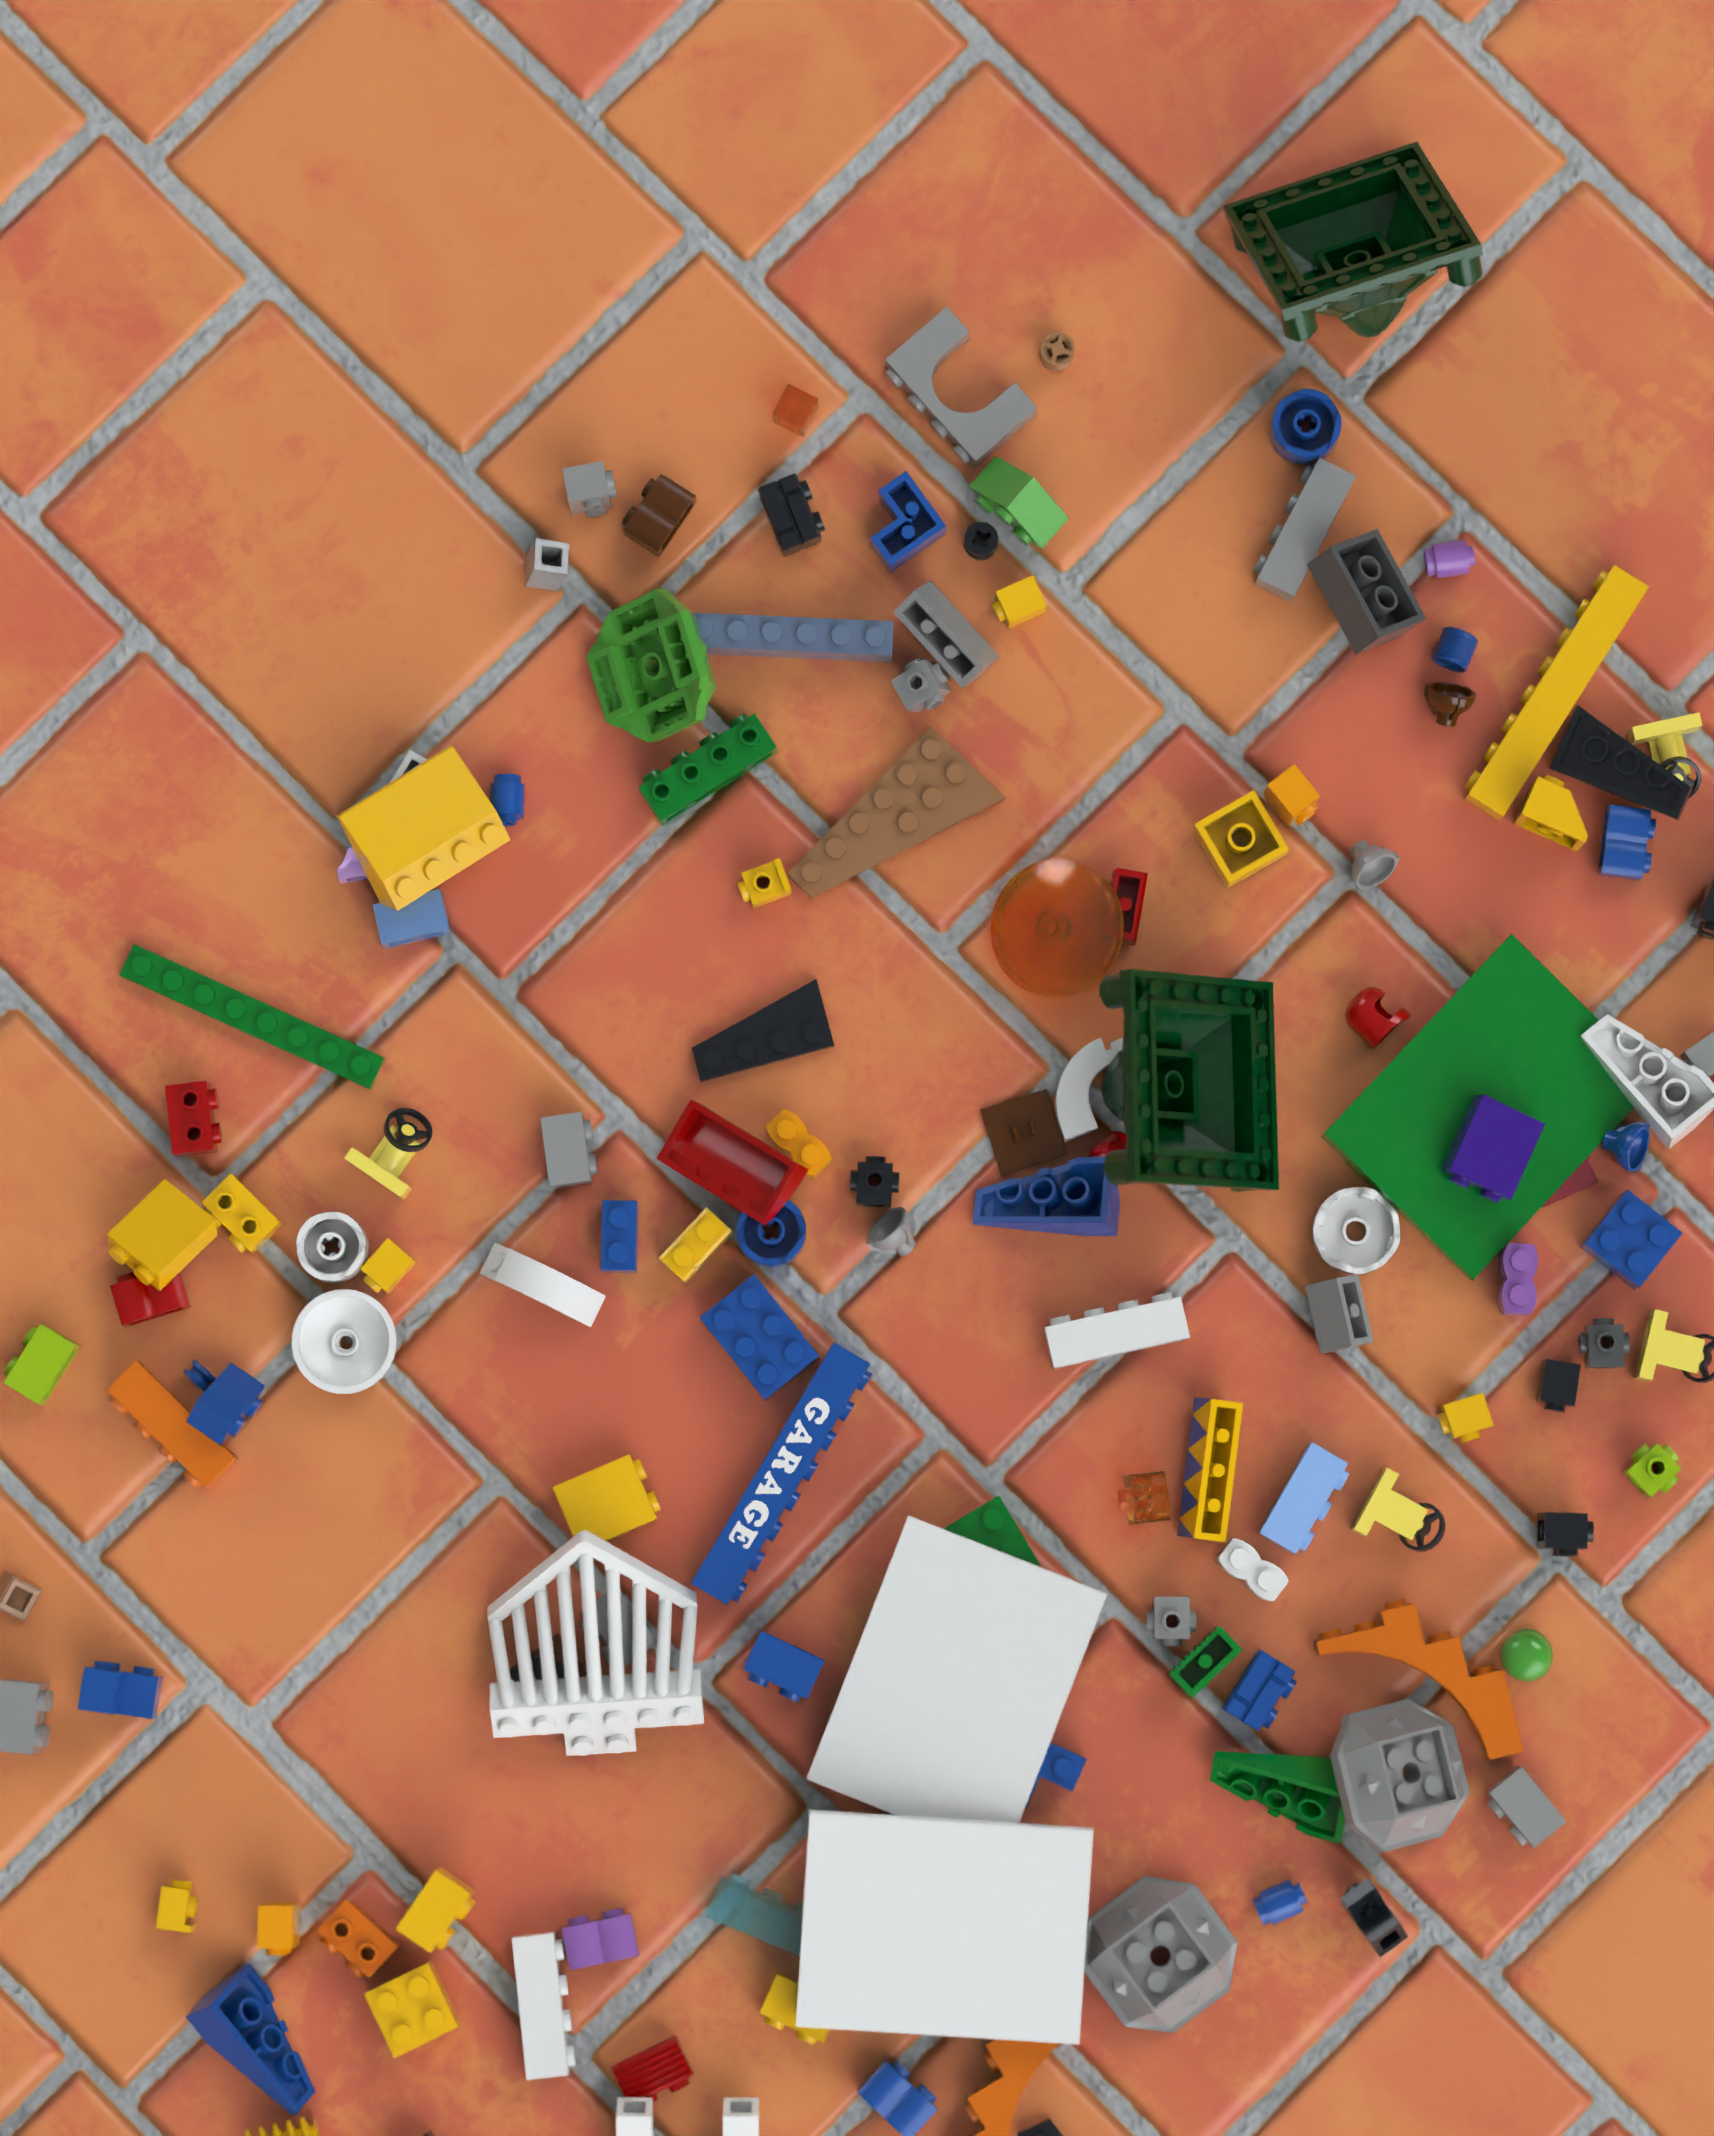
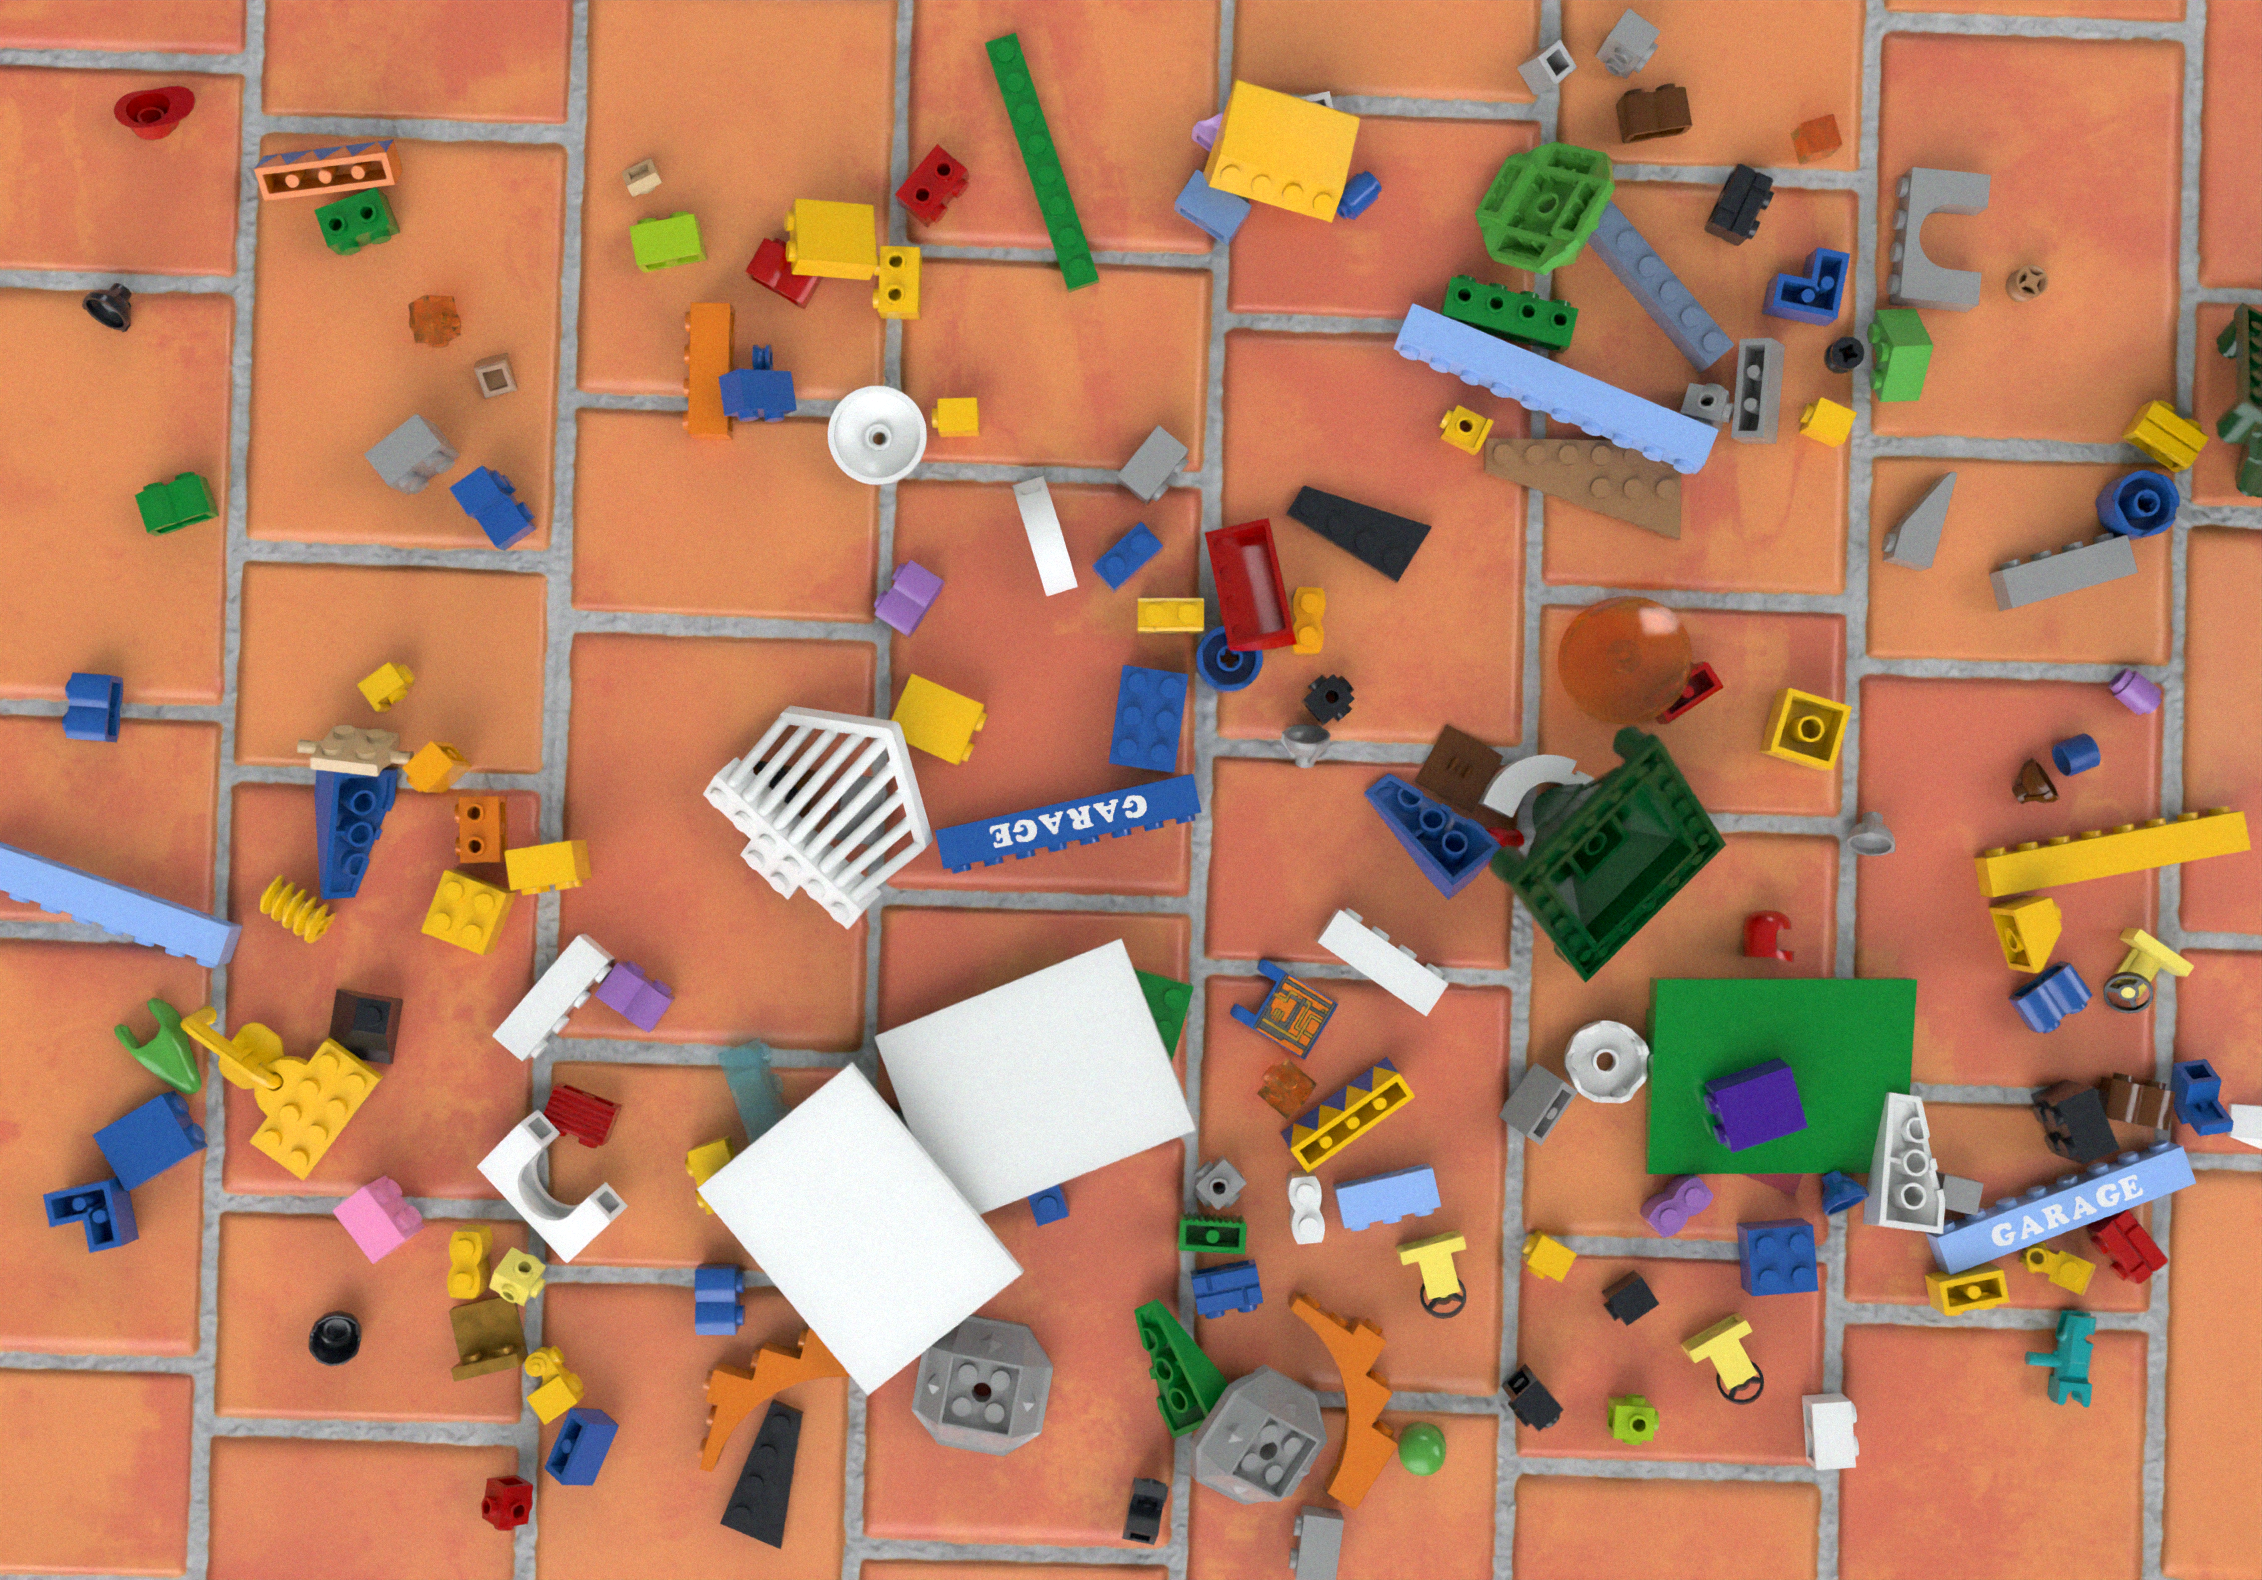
camera: 50 degrees right, 5 degrees up
(205, 1978) = (355, 751): none -> tan plate
(330, 1227) = (918, 358): white brick -> none
(393, 1151) = (1040, 347): light yellow piece -> none
(491, 1435) = (909, 597): none -> medium lavender brick
(783, 1665) = (937, 948): blue brick -> none
(799, 788) = (1555, 390): none -> light blue brick
(1092, 1441) = (1290, 1013): none -> flag
(1170, 614) = (1917, 534): none -> light grey slope
(1270, 356) = (2165, 435): none -> yellow brick
(1280, 1902) = (1095, 1435): blue brick -> none
(1292, 796) = (1870, 738): light orange brick -> none
(1366, 591) = (2063, 655): dark grey brick -> none
(1595, 1354) = (1687, 1305): dark grey brick -> none
(1614, 765) = (2099, 940): black wing -> none

